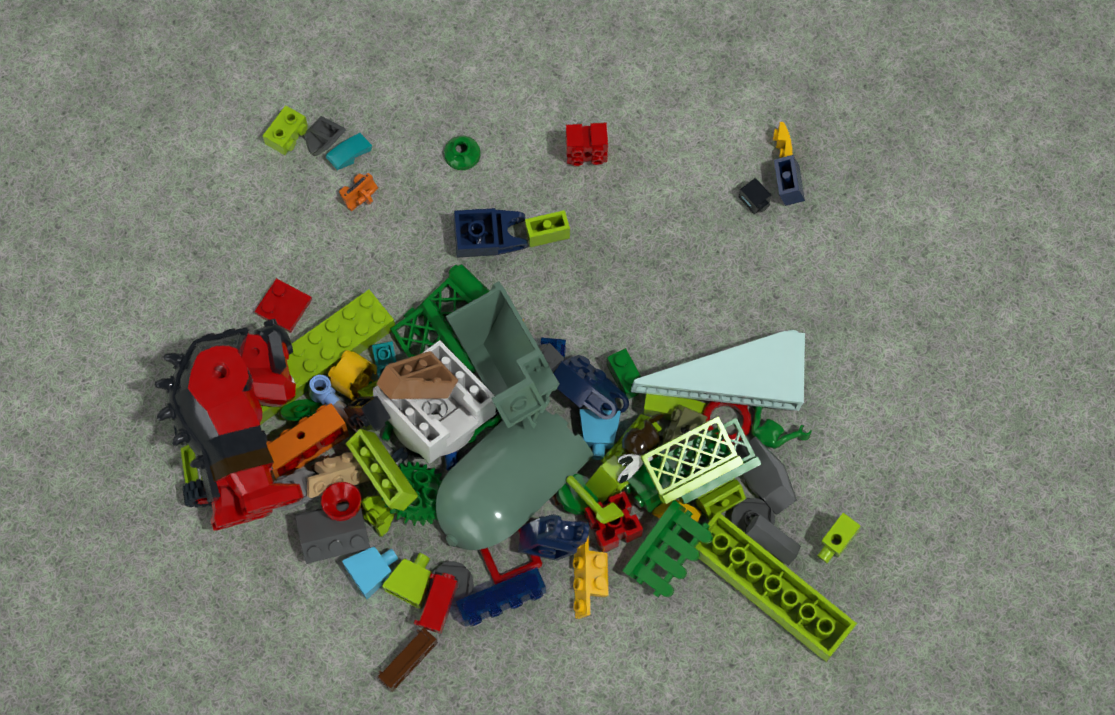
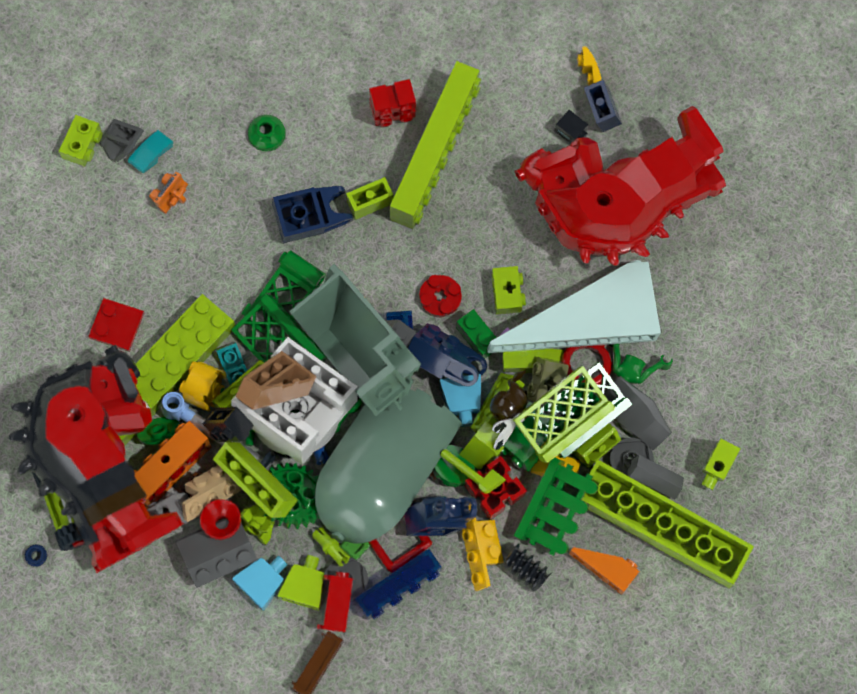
camera: 15 degrees left, 5 degrees up
(158, 501) = (31, 550): none -> dark blue plate
(443, 549) = (331, 546): none -> lime pin
(467, 557) = (355, 550): none -> bright green tile
(594, 321) = (429, 299): none -> red plate
(619, 189) = (435, 145): none -> lime brick
(629, 605) = (526, 568): none -> black piece
(663, 349) = (504, 301): none -> lime brick
(711, 620) = (611, 569): none -> orange slope
(792, 273) = (628, 201): none -> red piece

